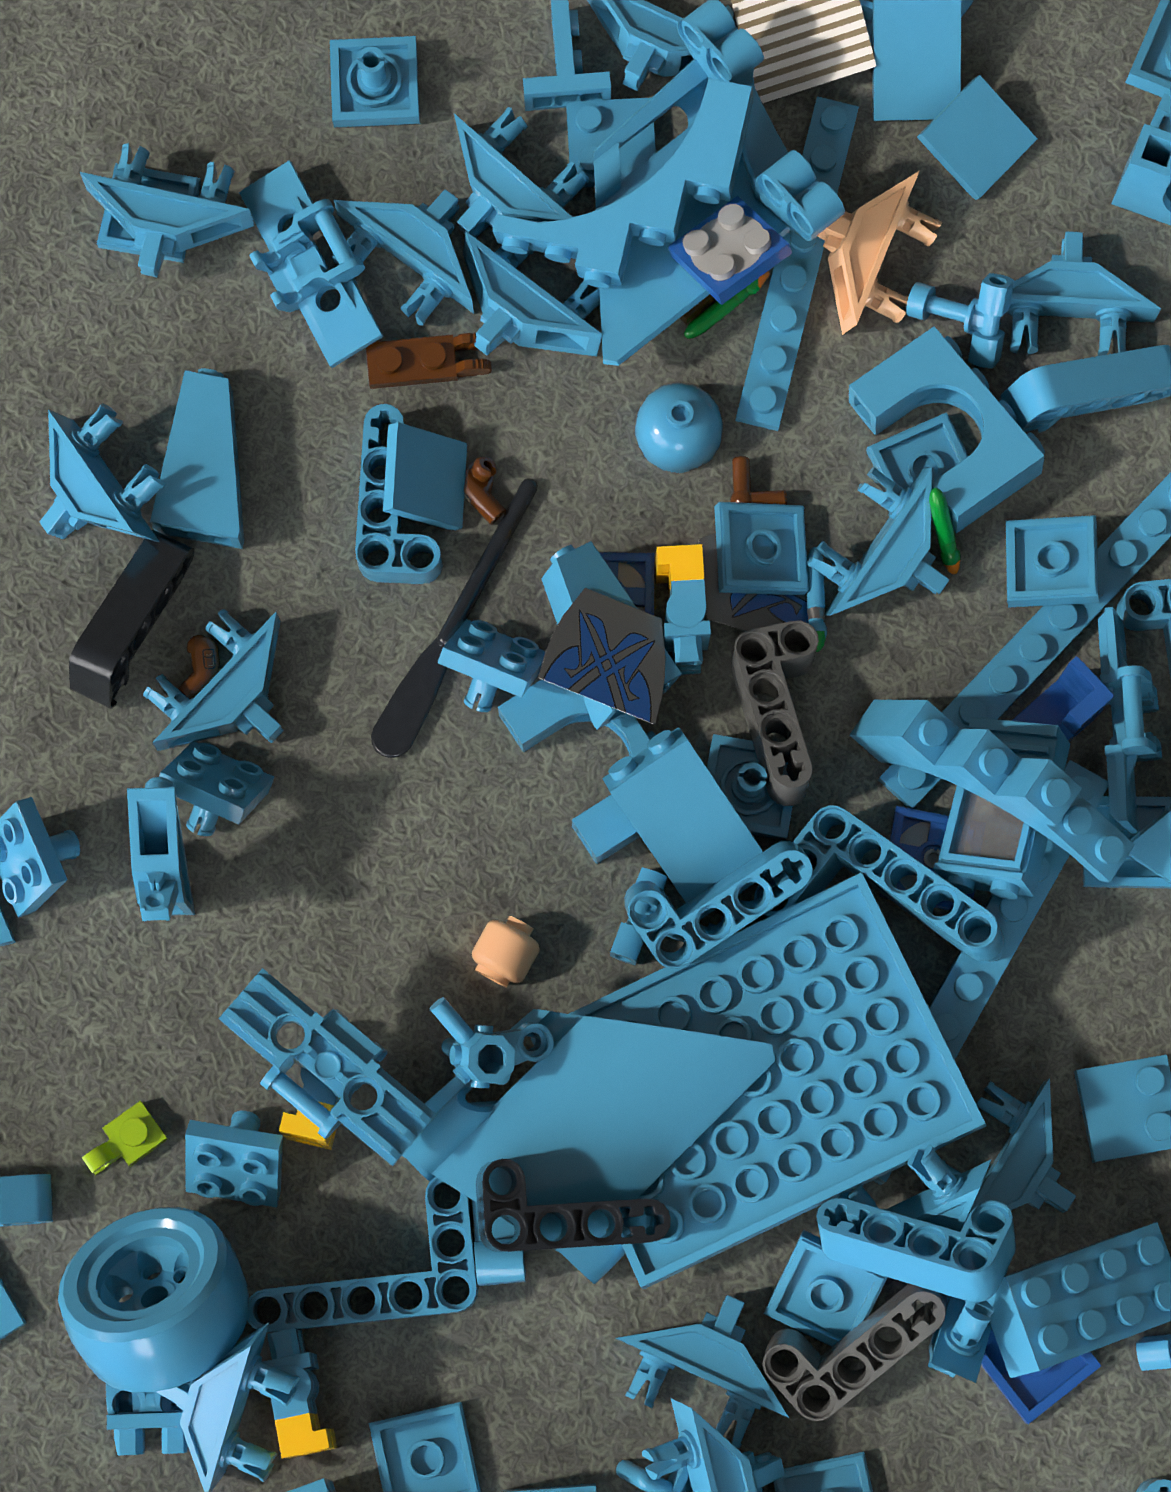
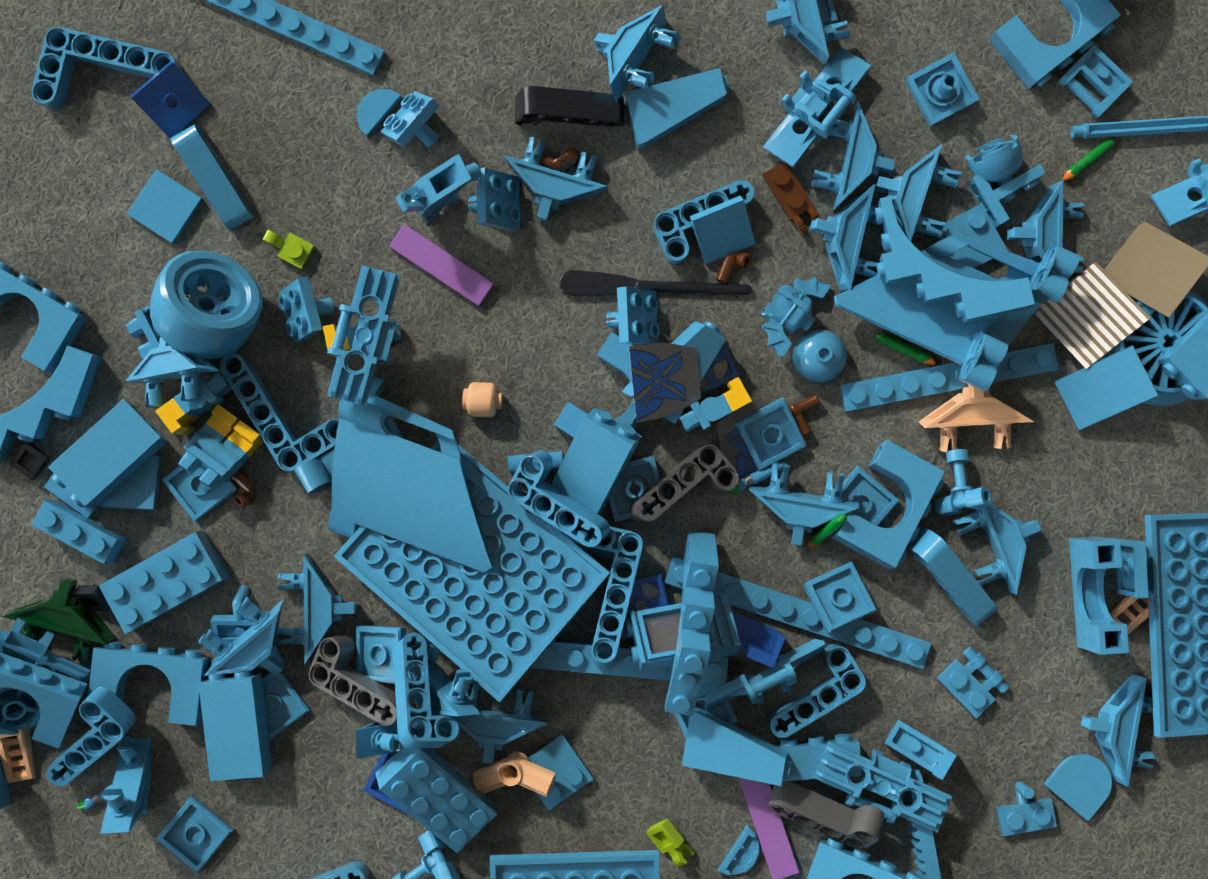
camera: 65 degrees right, 10 degrees up
(268, 919) = (441, 265): none -> medium lavender tile
(388, 1410) = (220, 448): none -> dark azure hips
(464, 1387) = (246, 488): none -> reddish brown arm
(486, 1054) = (412, 420): dark azure piece -> none
(516, 45) = (997, 160): none -> dark azure cylinder
(572, 1216) = (350, 503): black beam -> none
(594, 435) = (791, 312): none -> dark azure helmet
(729, 250) = (933, 336): piece -> none
(977, 137) = (1071, 445): dark azure tile -> none
(1097, 1193) = (501, 774): none -> light nougat piece

